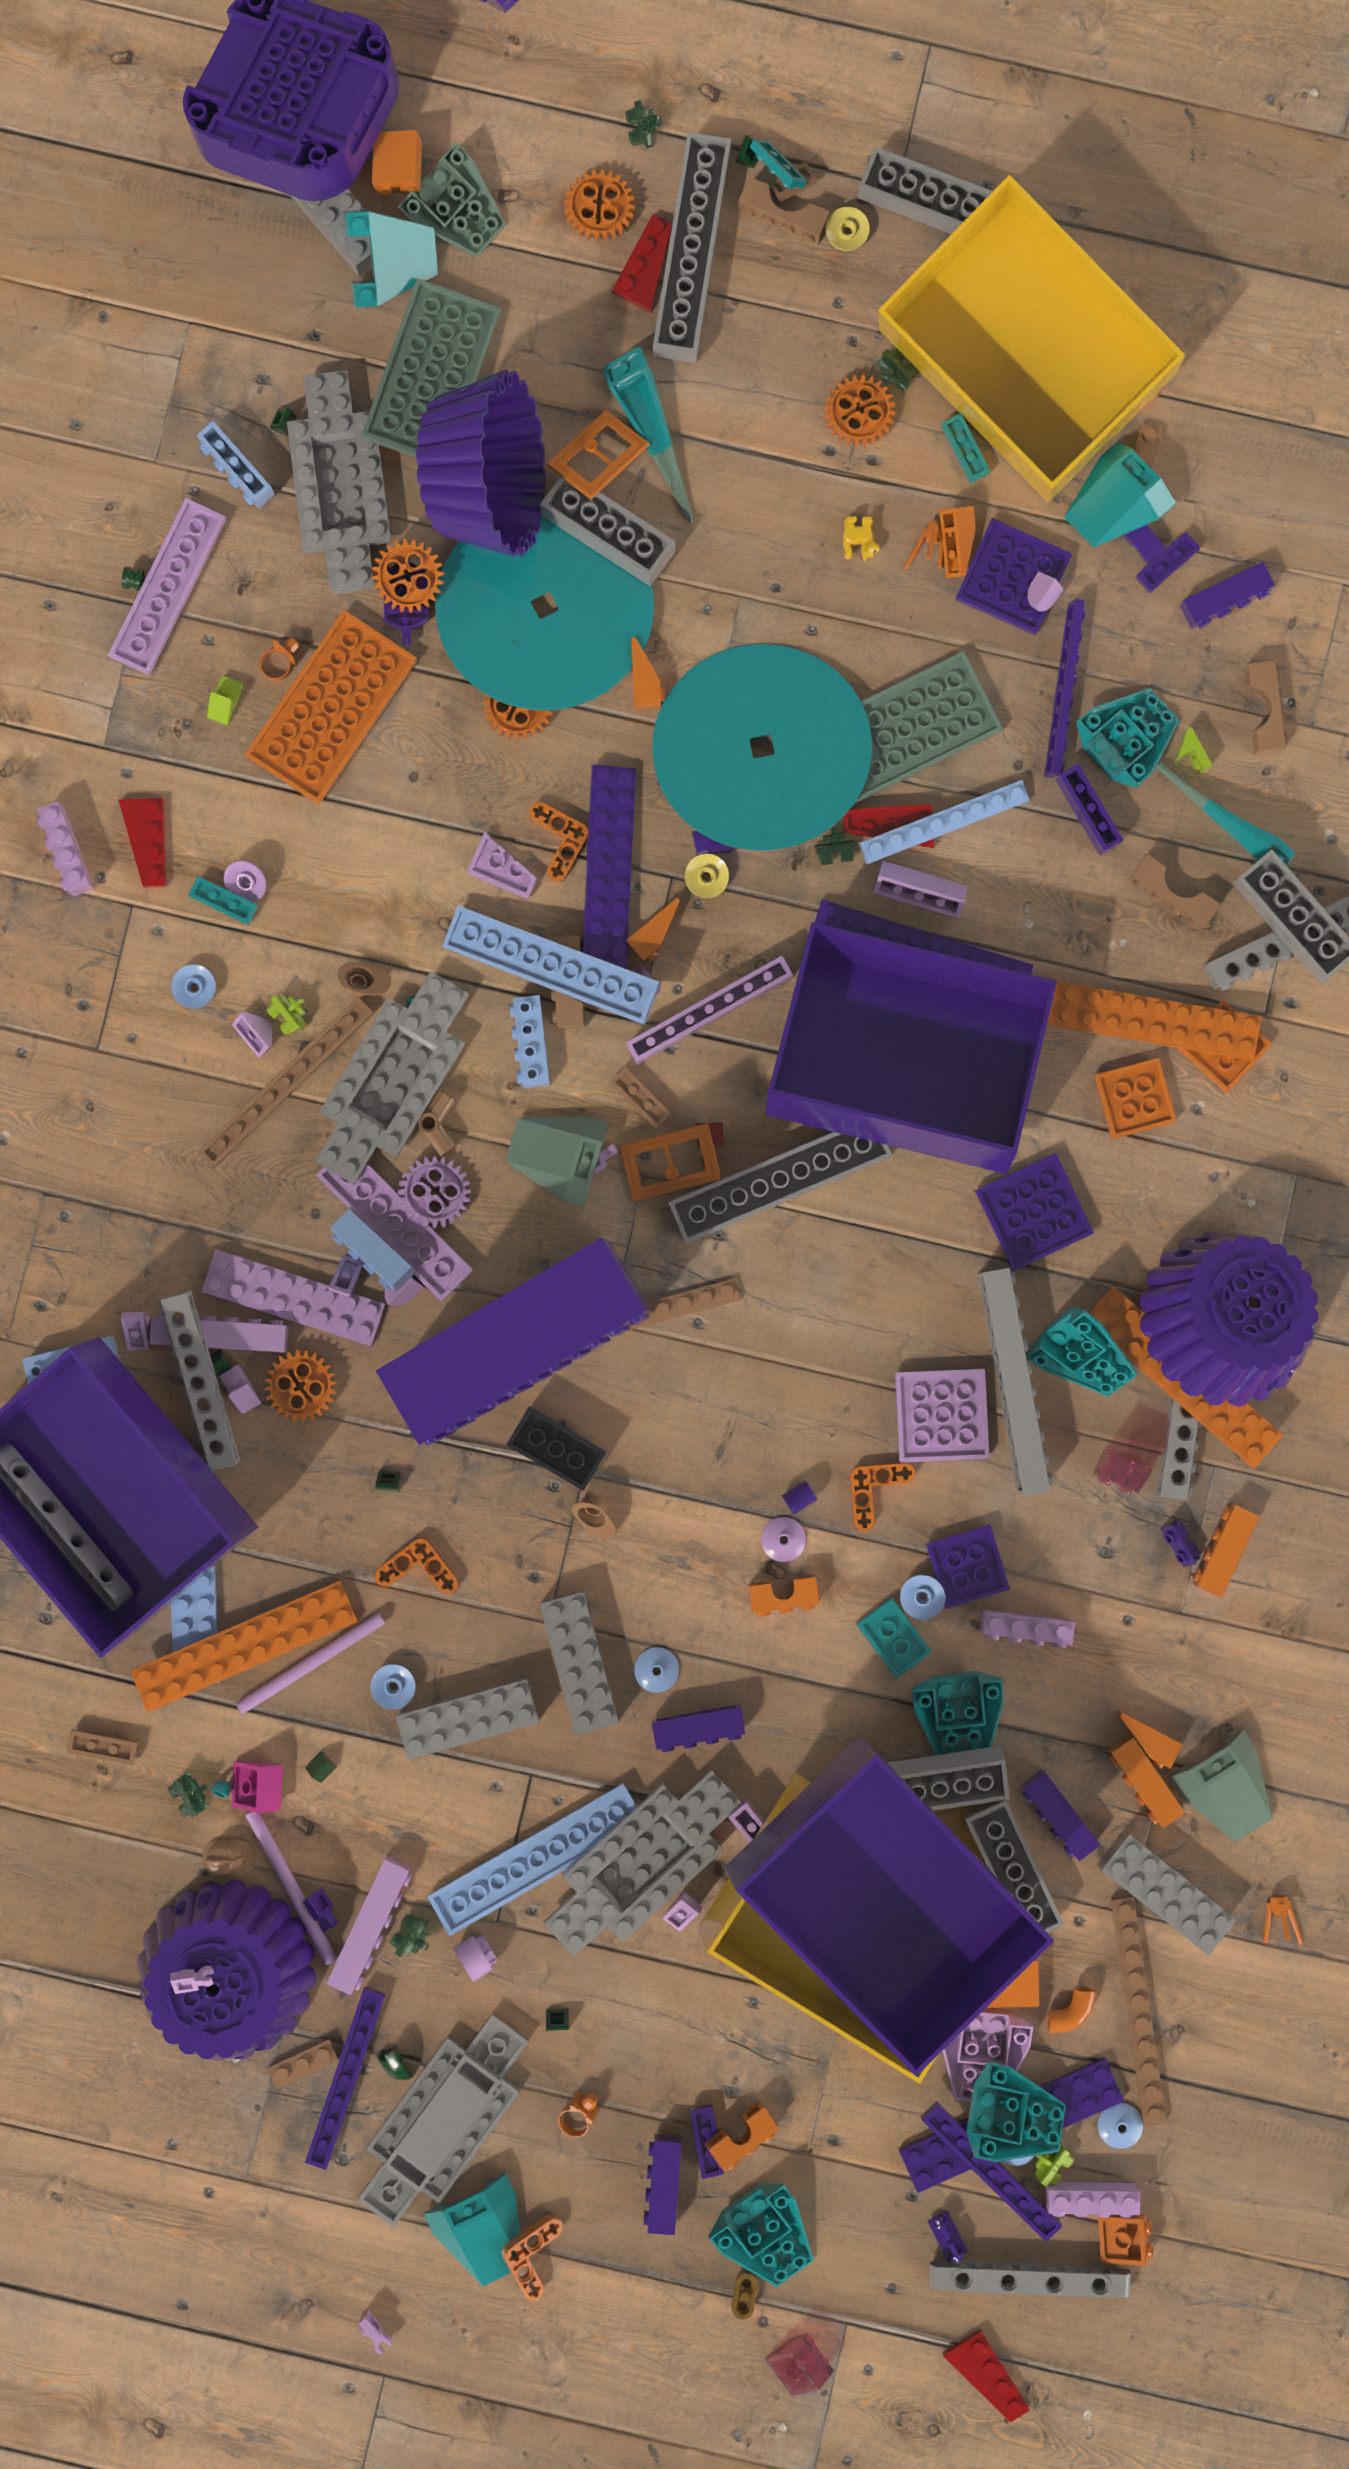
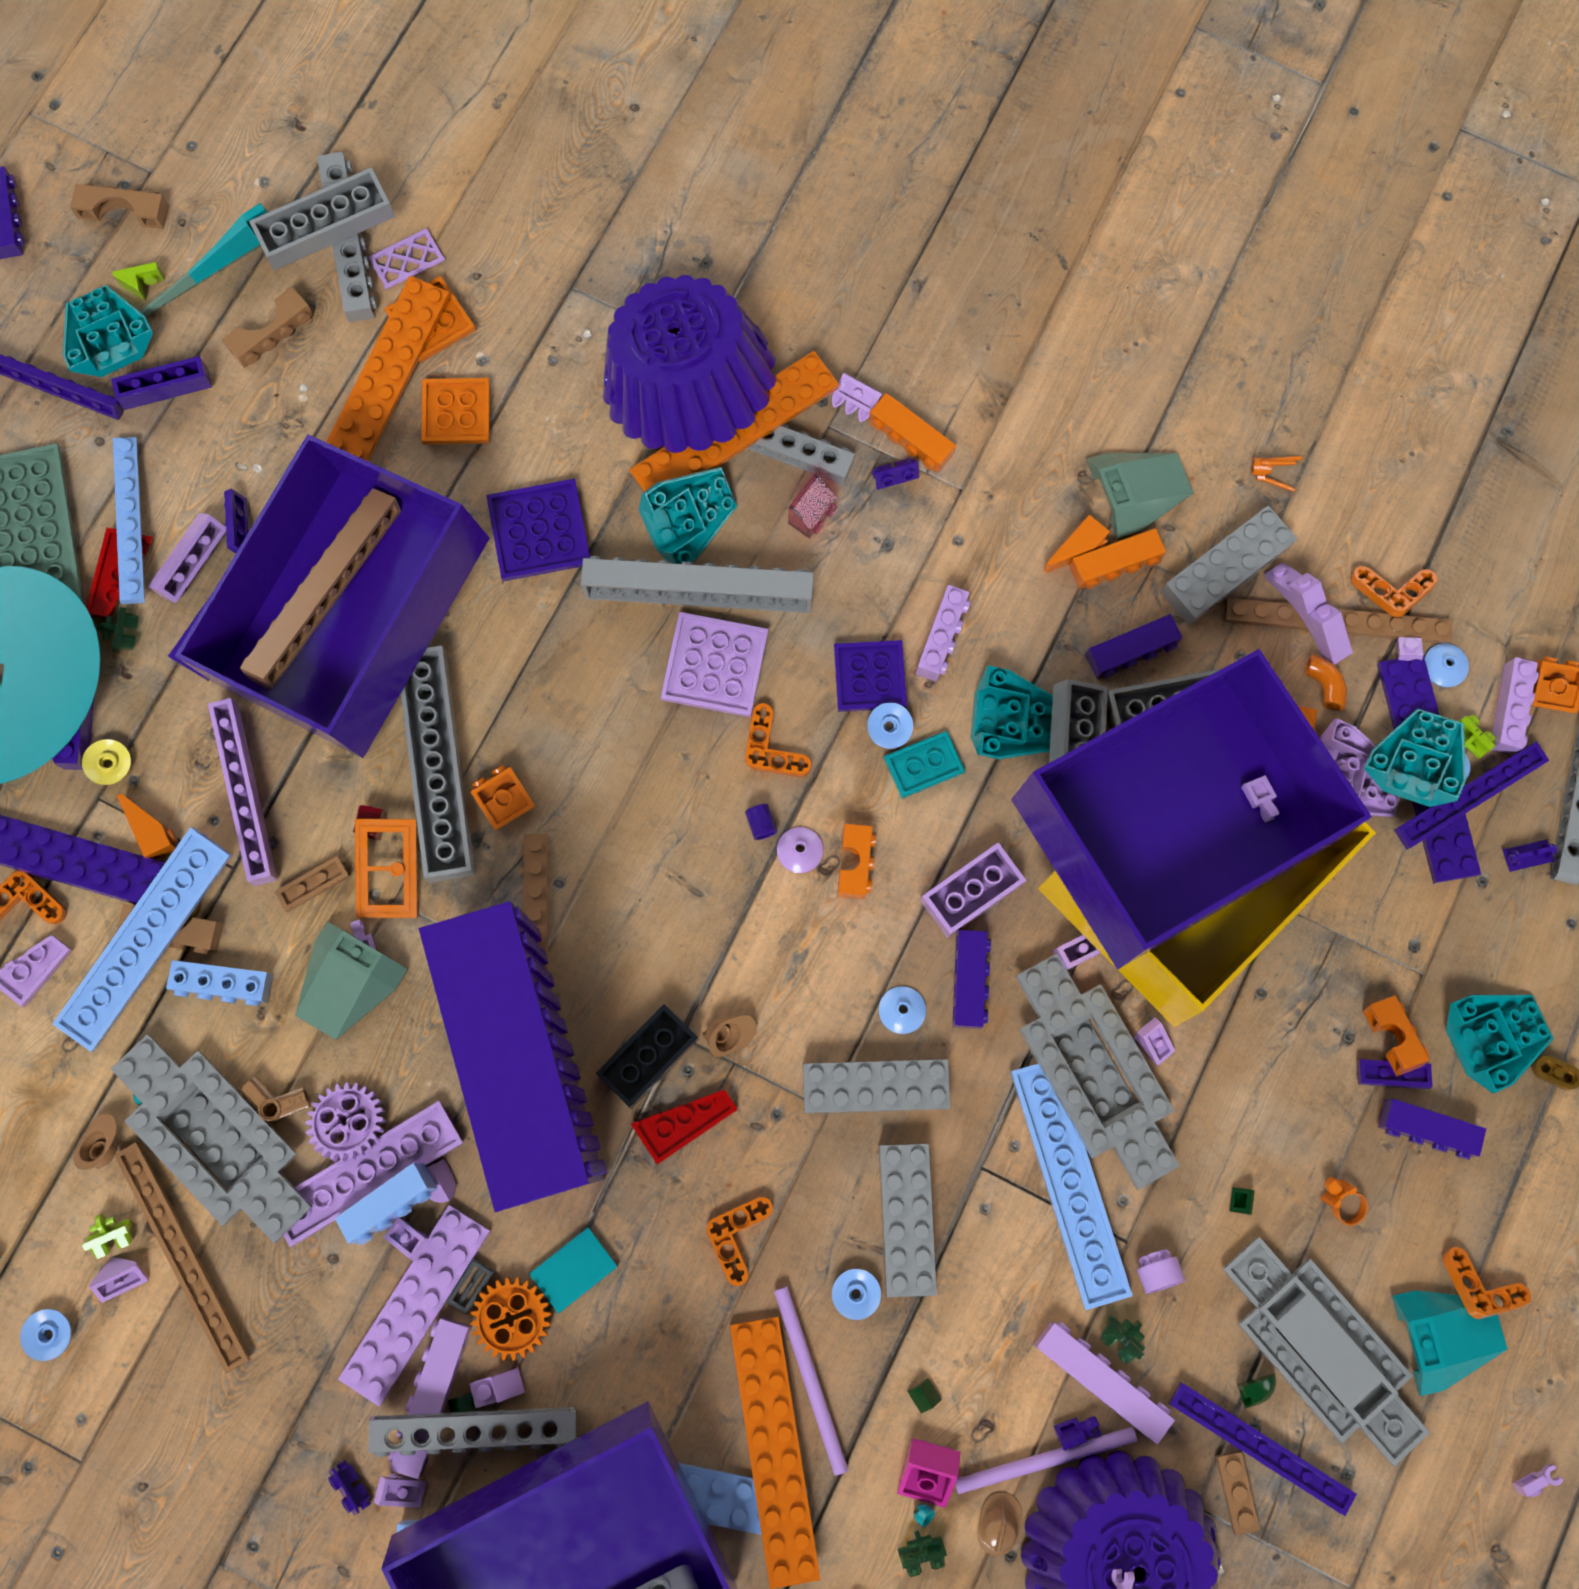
camera: 80 degrees left, 10 degrees down
(122, 1290) = (352, 1496): none -> dark purple hinge
(338, 1347) = (482, 1268): none -> dark grey tile
(355, 1429) = (573, 1270): none -> teal tile
(388, 1481) = (638, 1247): dark green slope -> none
(502, 1492) = (677, 1127): none -> red wing
(764, 1248) = (501, 796): none -> orange plate
(782, 1711) = (972, 890): none -> lavender brick
(915, 1033) = (320, 589): none -> medium nougat brick
(925, 1968) = (1261, 794): none -> lavender plate
(966, 925) = (236, 519): none -> dark purple plate
(1126, 2086) = (1409, 648): none -> lavender plate
(1141, 1982) = (1309, 601): none -> lavender arch
(1176, 2067) = (1397, 596): none -> orange beam
(1252, 1487) = (856, 395): none -> lavender plate
(1287, 985) = (410, 242): none -> lavender window

